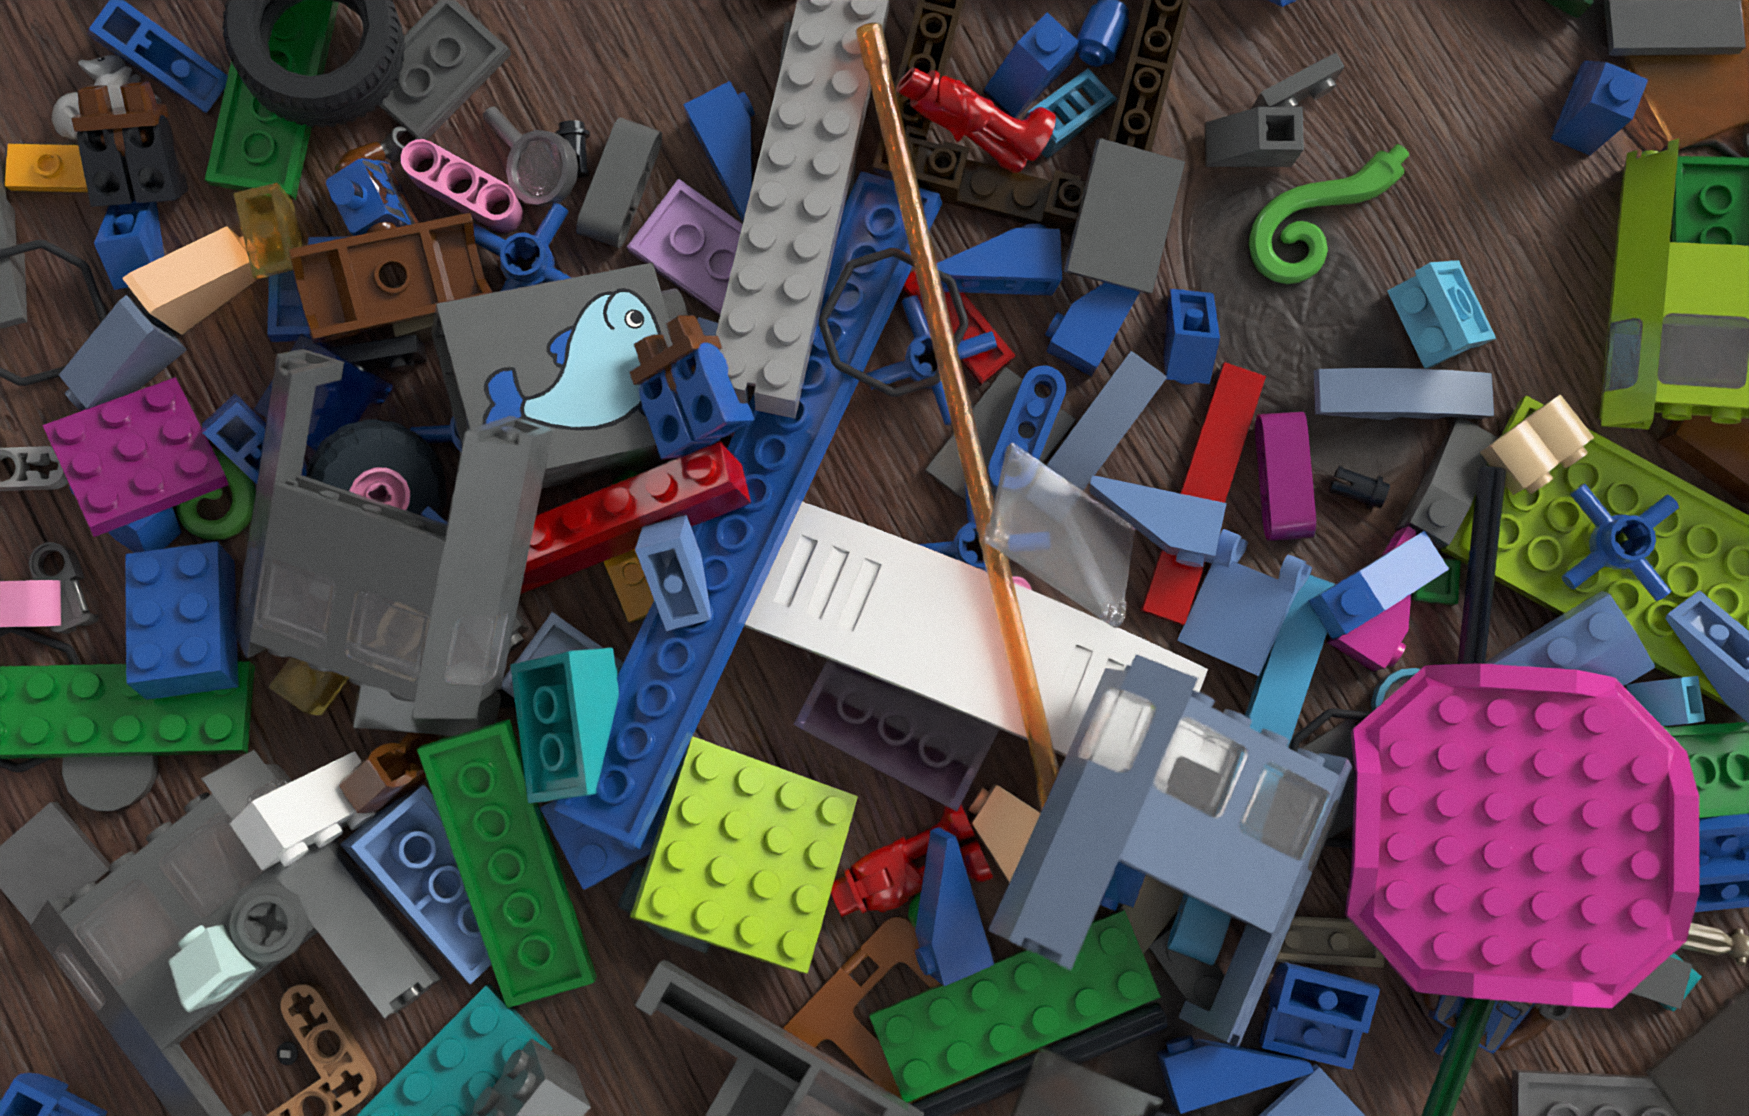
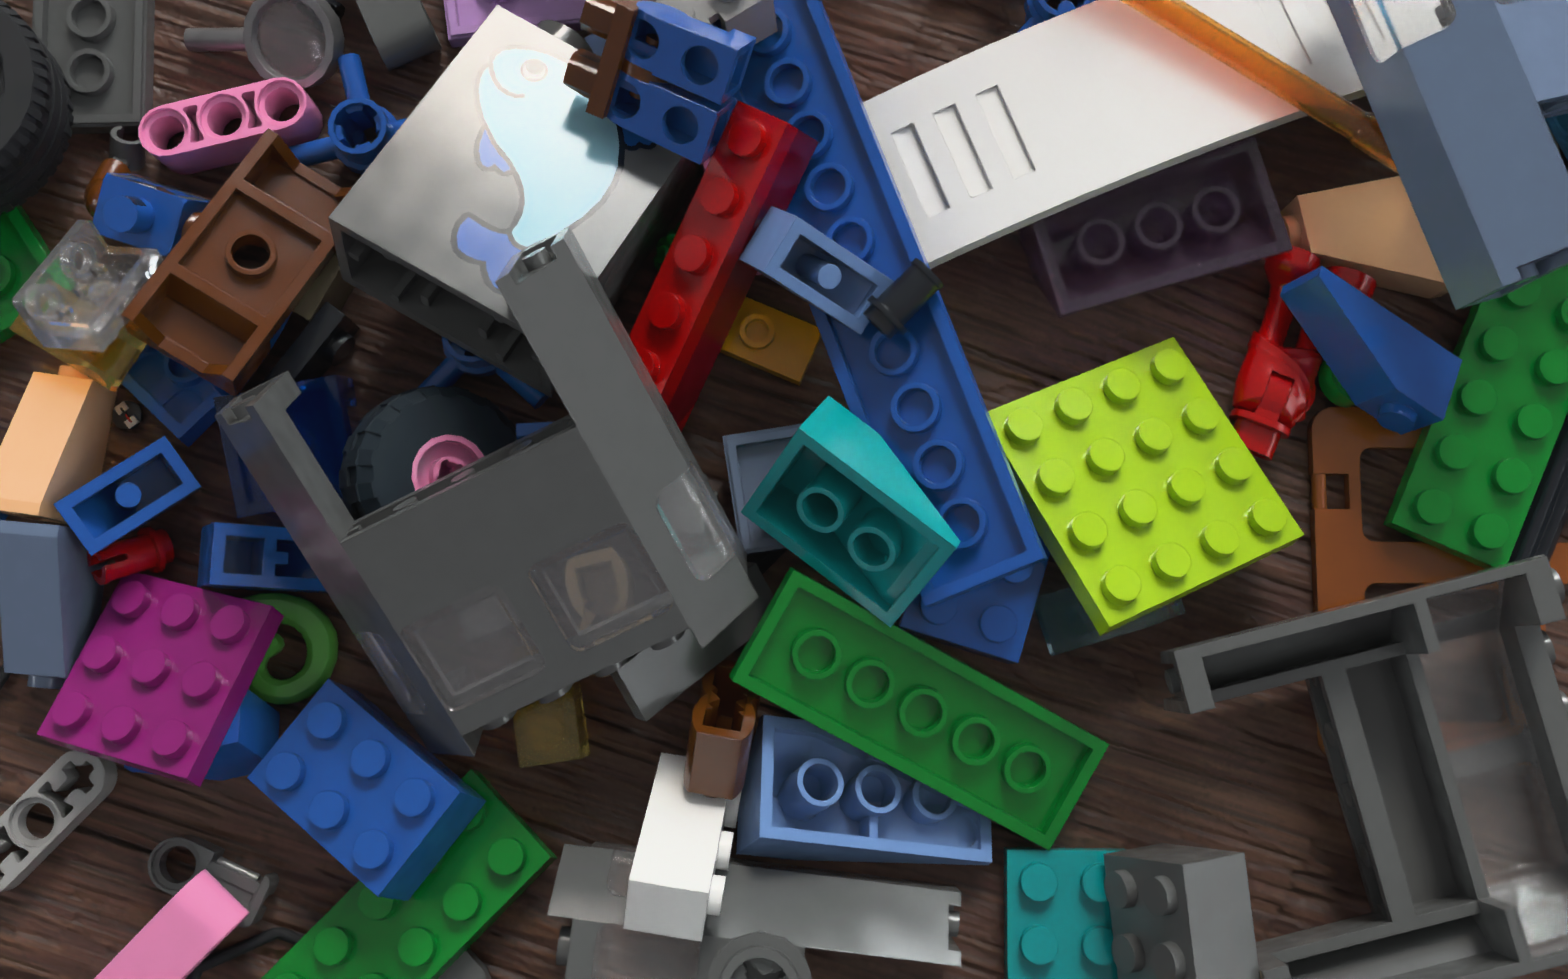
camera: 40 degrees left, 0 degrees up
(194, 377) = (143, 552): none -> red pin
(209, 342) = (127, 496): none -> blue slope
(257, 291) = (127, 415): none -> black piece
(289, 214) = (83, 290): none -> clear bracket
(700, 634) = (902, 299): none -> black pin

